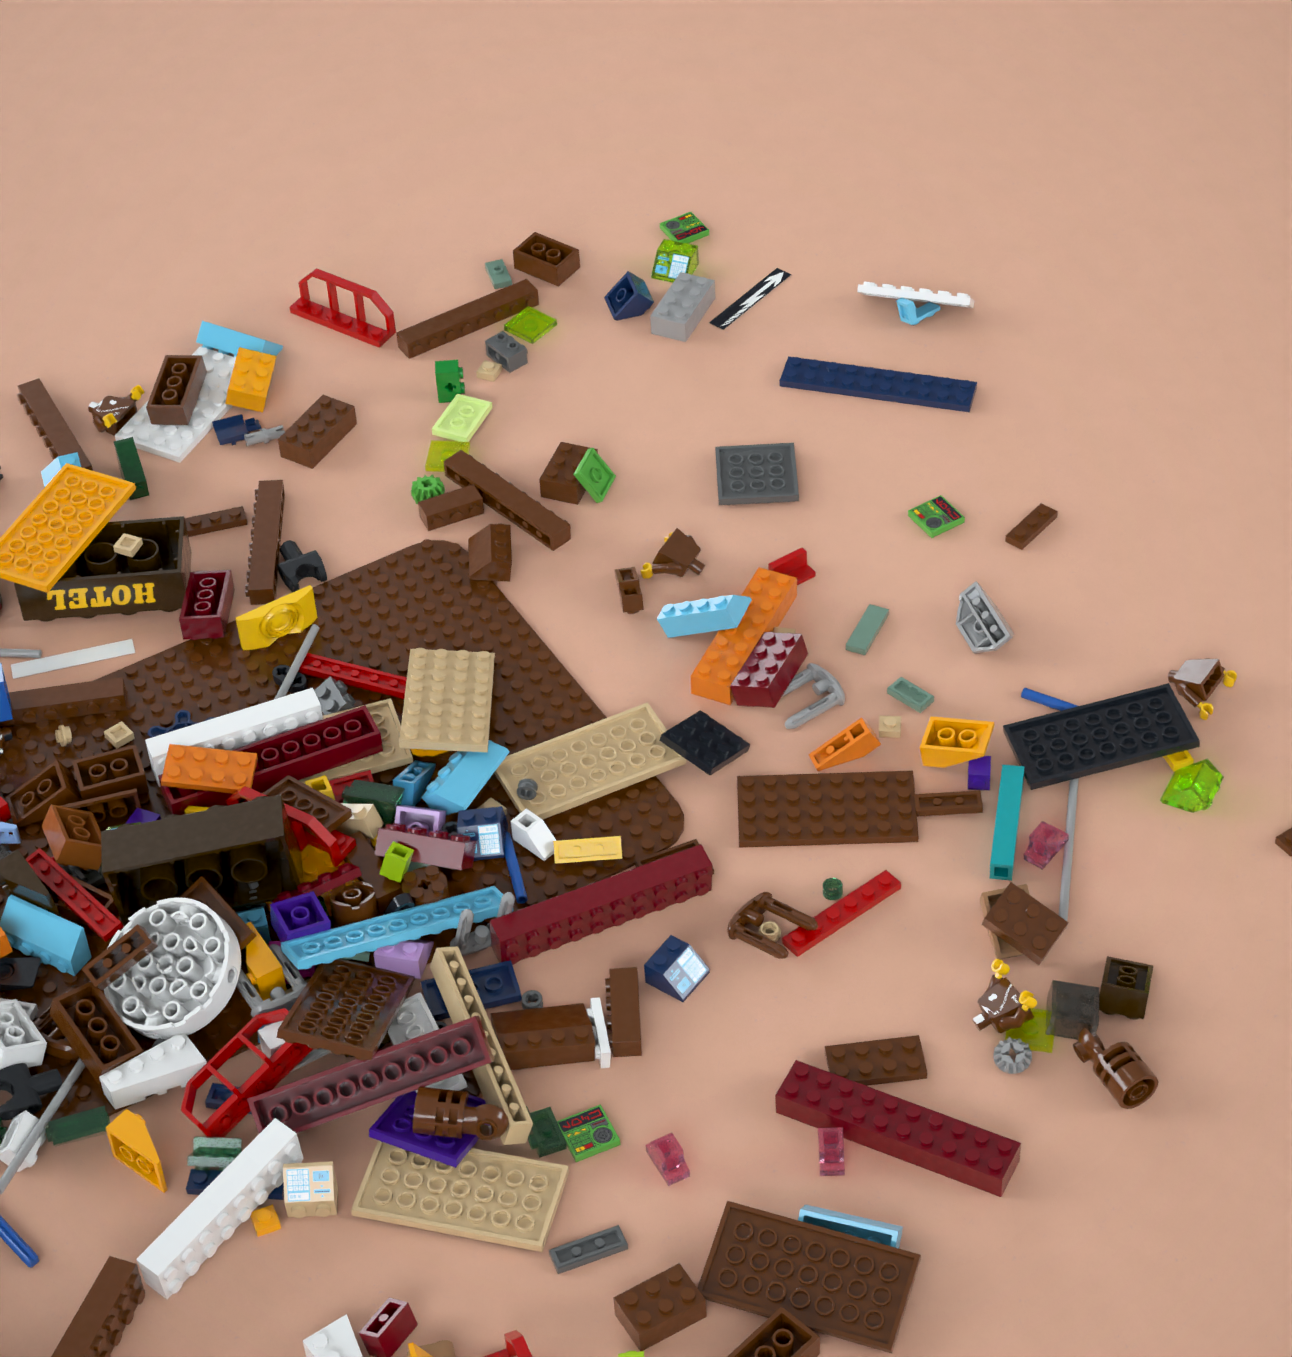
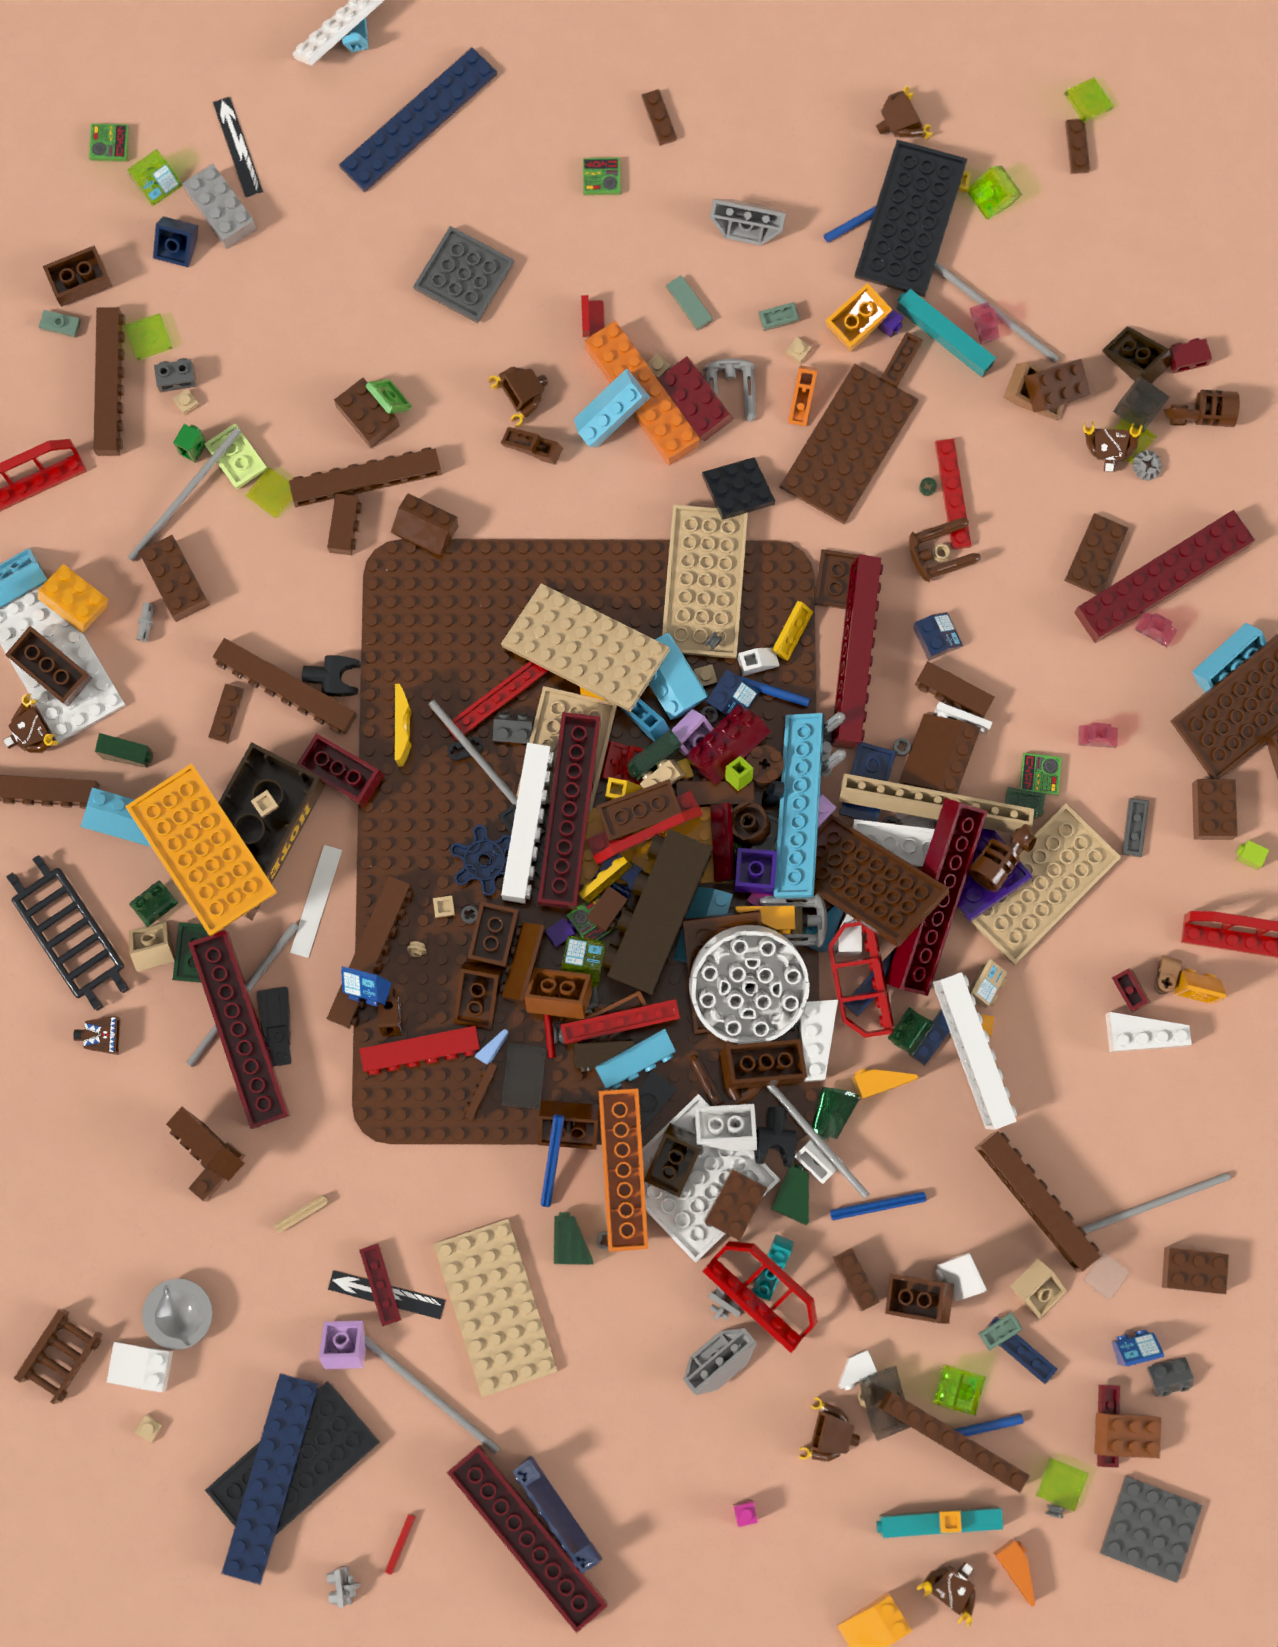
camera: 65 degrees left, 35 degrees up
(119, 957) = (730, 1018): reddish brown brick -> none
(208, 769) = (563, 862): orange plate -> none
(233, 428) = (118, 643): dark blue piece -> none
(417, 403) = (185, 493): none -> light grey piece
(426, 488) = (307, 537): bright green gear -> none
(1166, 1029) = (1190, 355): none -> dark red brick

